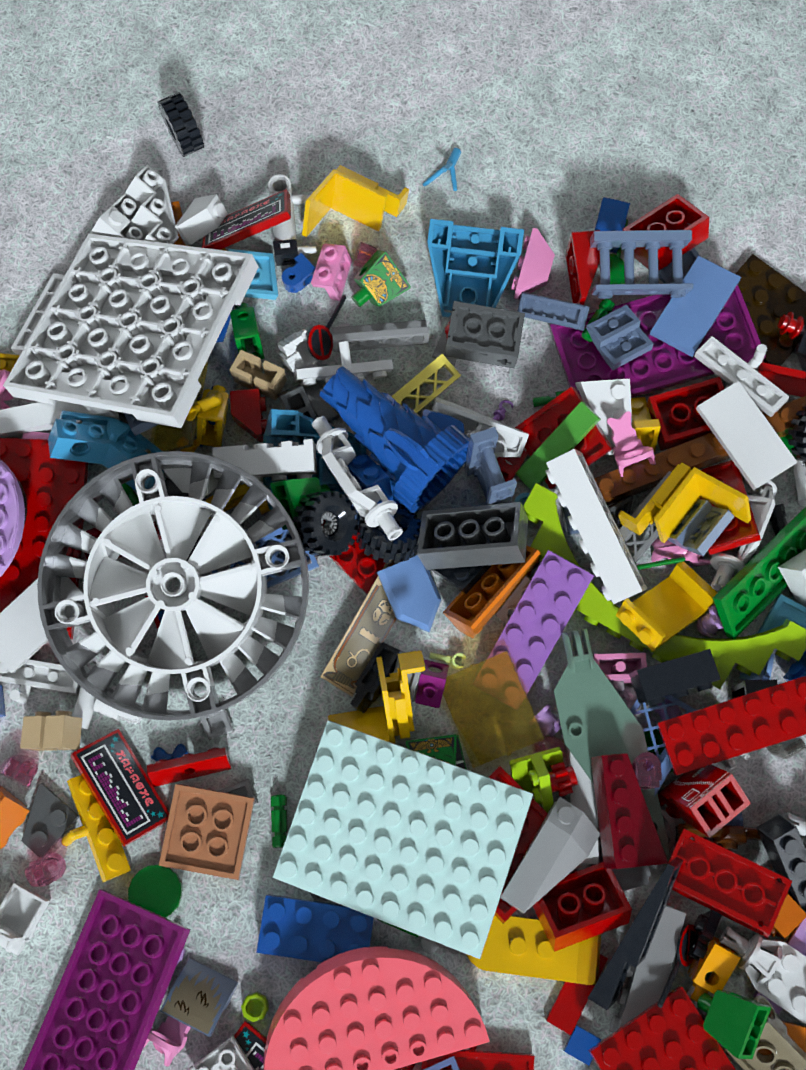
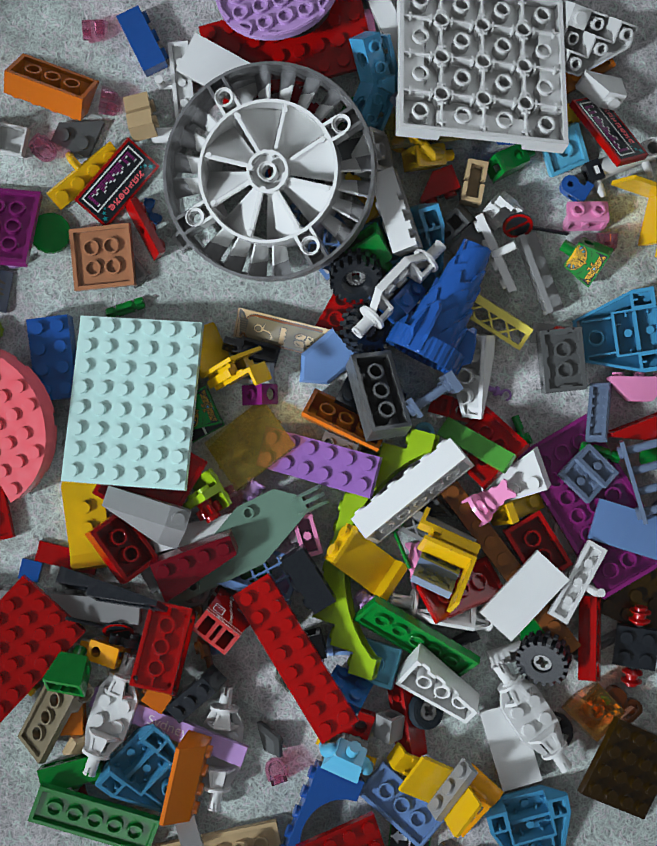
camera: 80 degrees right, 15 degrees up
(448, 659) = (281, 401): yellowish green hand -> none
(647, 770) = (230, 572): clear pink piece -> none

